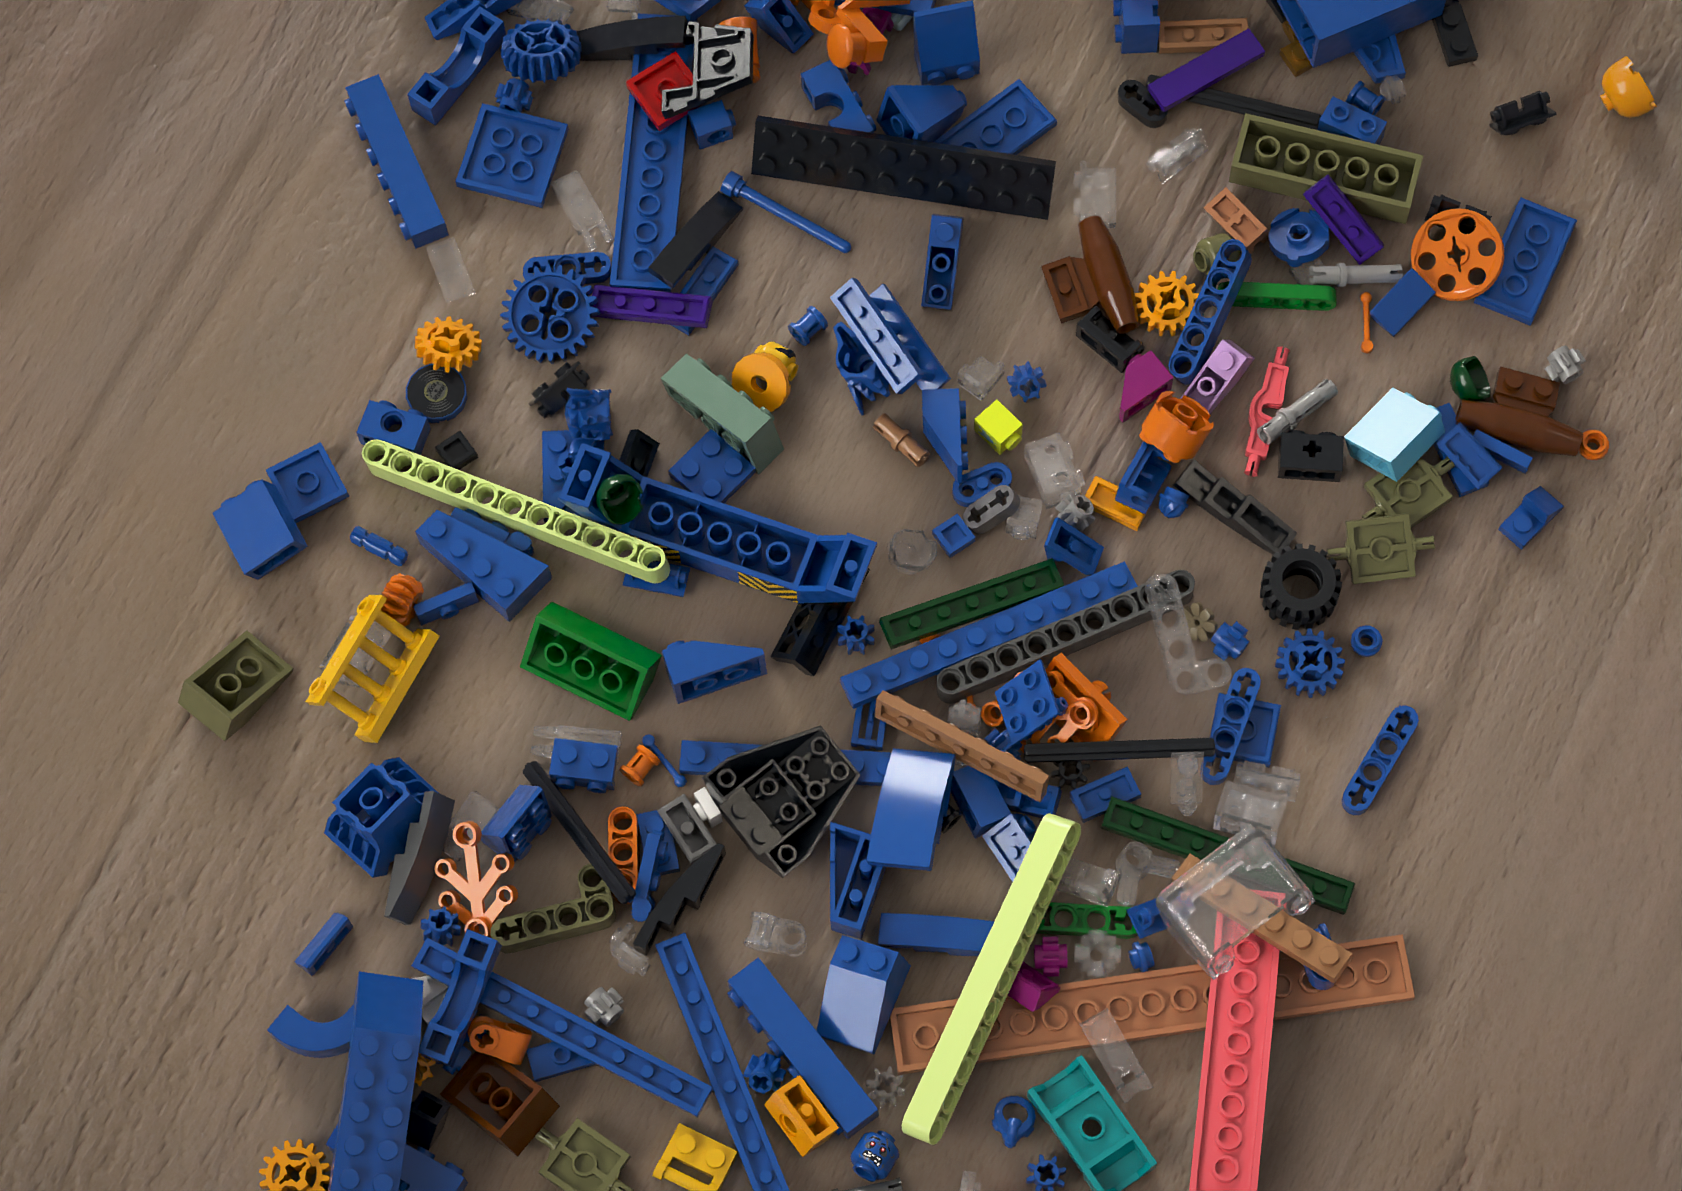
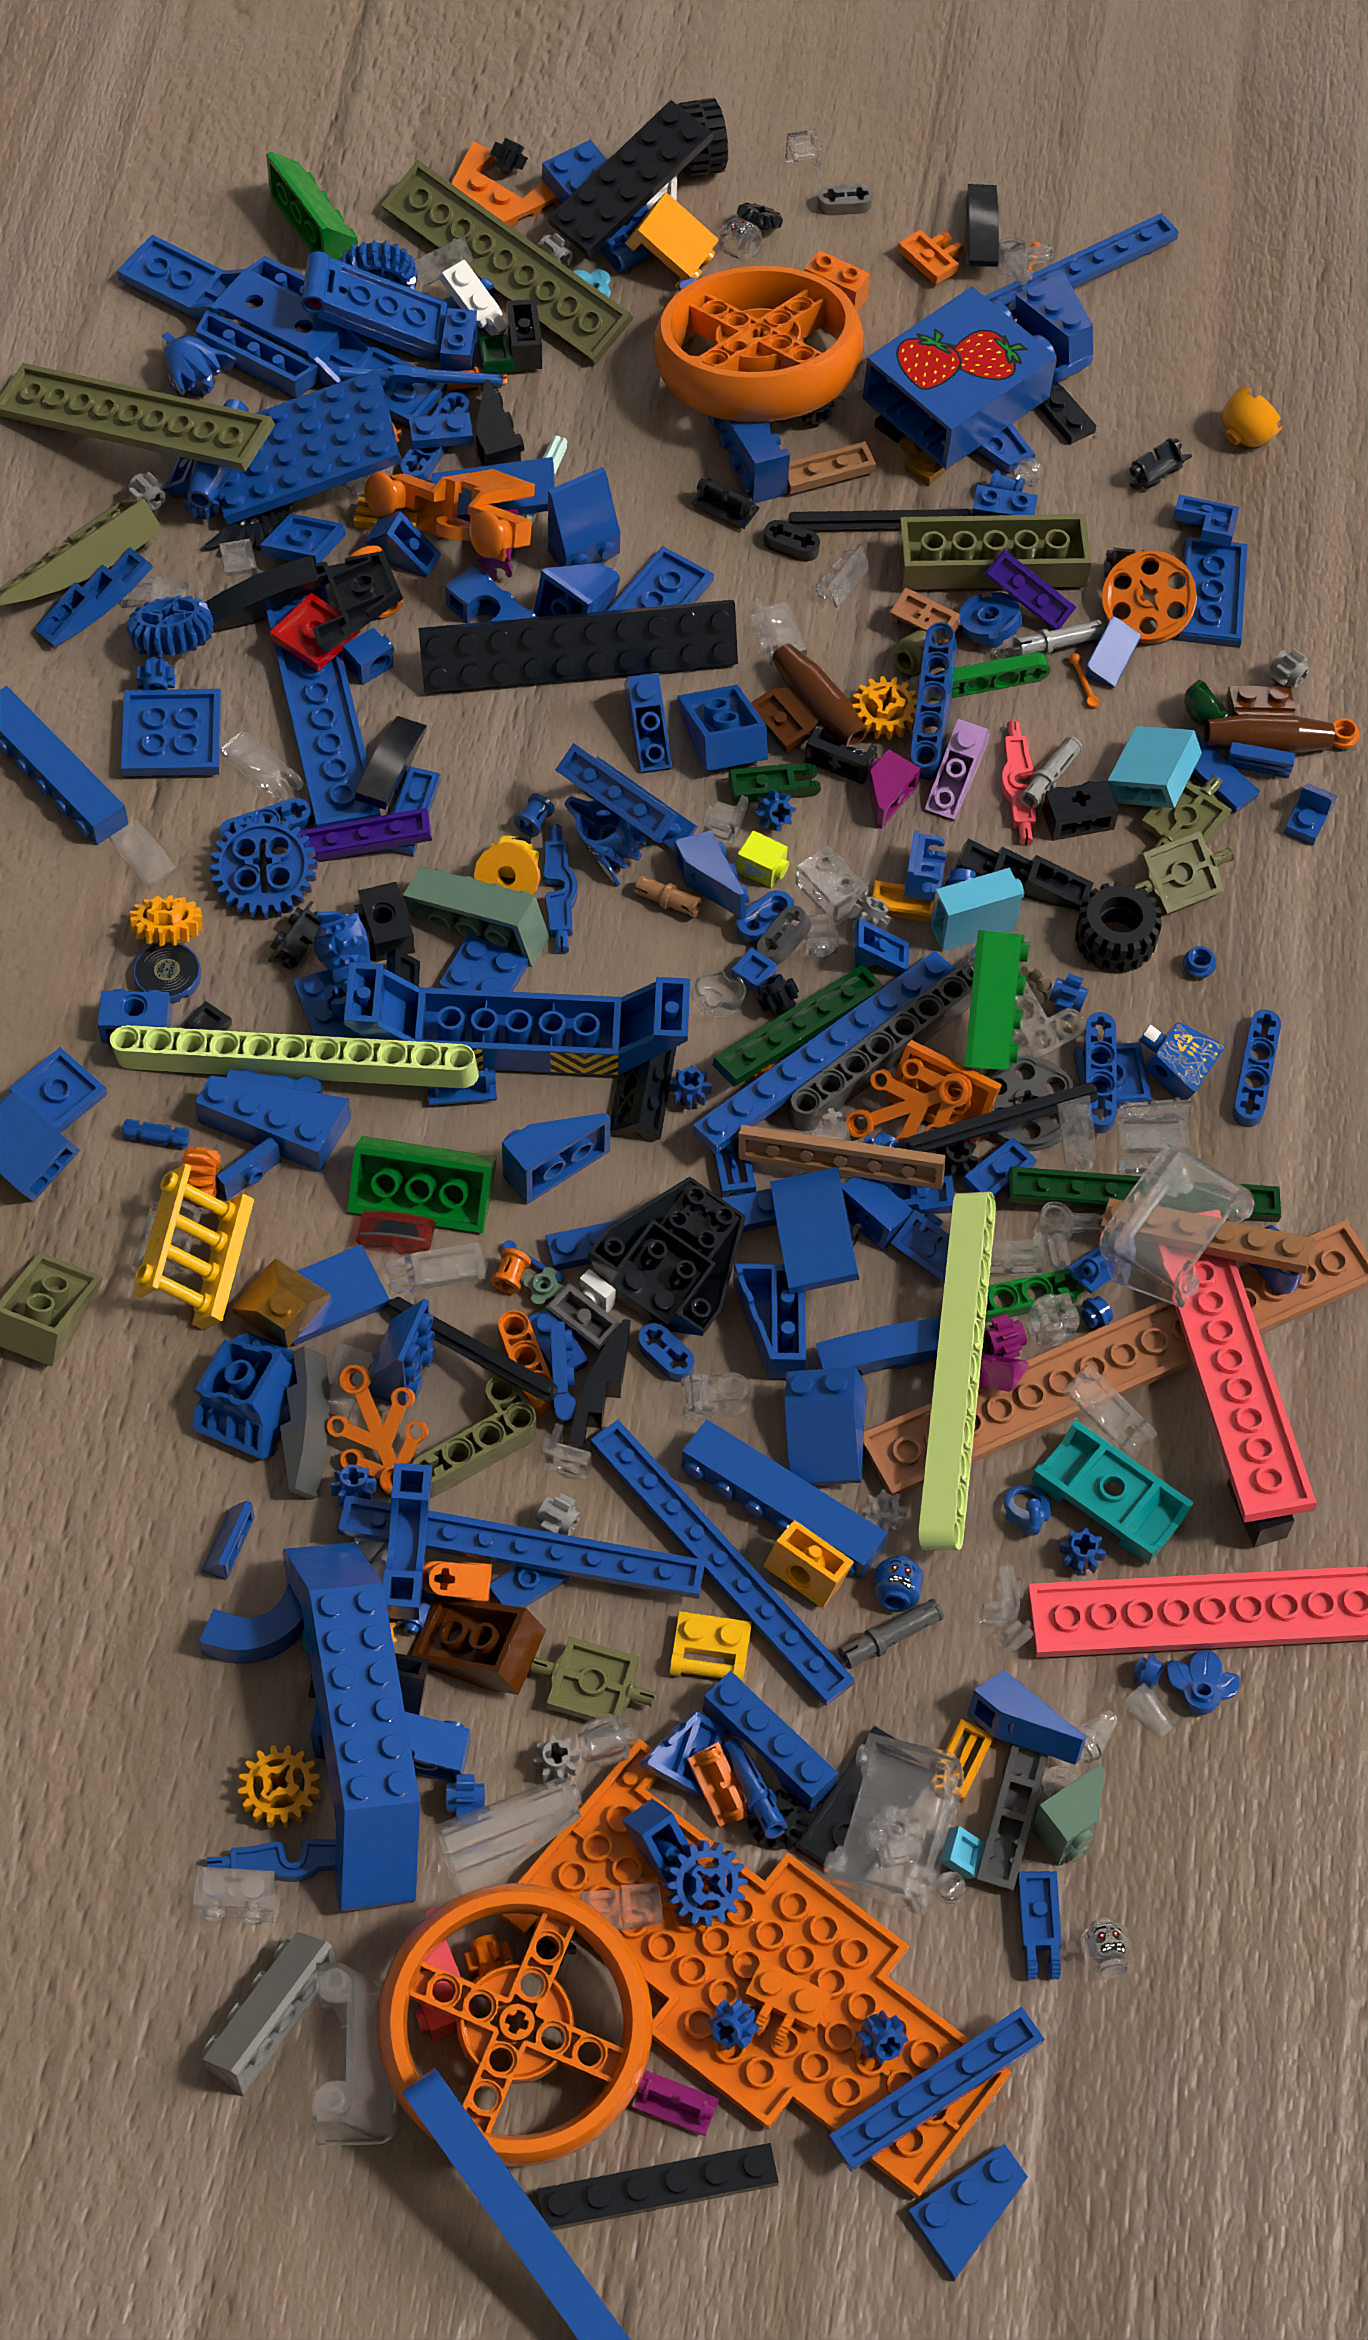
camera: 25 degrees left, 10 degrees down
(434, 738) = (281, 1303): none -> pearl gold slope
(477, 44) = (101, 636): blue arch -> none
(477, 740) = (353, 1291): none -> blue tile
(554, 699) = (398, 1230): none -> clear red slope
(583, 765) = (453, 1284): blue bracket -> none
(619, 499) = (406, 1008): dark green hair -> none
(643, 414) = (386, 905): none -> black brick
(657, 781) = (543, 1296): none -> sand green plate
(735, 186) = (412, 706): blue piece -> none
(756, 877) = (671, 1347): none -> blue beam
(764, 1073) = (753, 1542): blue gear -> none
(803, 418) = (562, 901): none -> blue piece
(965, 566) = (777, 994): none -> black gear
(1009, 282) = (724, 728): none -> blue slope
(1029, 703) = (896, 1096): blue hinge -> none
(1039, 350) = (781, 778): none -> dark green hinge
(1092, 49) = (725, 504): none -> black hinge
(1147, 638) = (995, 1000): none -> green slope
(1151, 719) = (1019, 1089): none -> dark grey wedge
(1174, 534) = (974, 905): none -> medium azure brick
(1176, 426) = (941, 811): orange brick -> none
(1206, 70) = (844, 493): dark purple tile -> none
(1309, 733) = (1180, 1058): none -> blue torso
(1318, 672) = (1140, 986): blue gear -> none
(1469, 455) = (1234, 767): blue plate -> none
(1554, 185) = (1216, 518): none -> blue plate

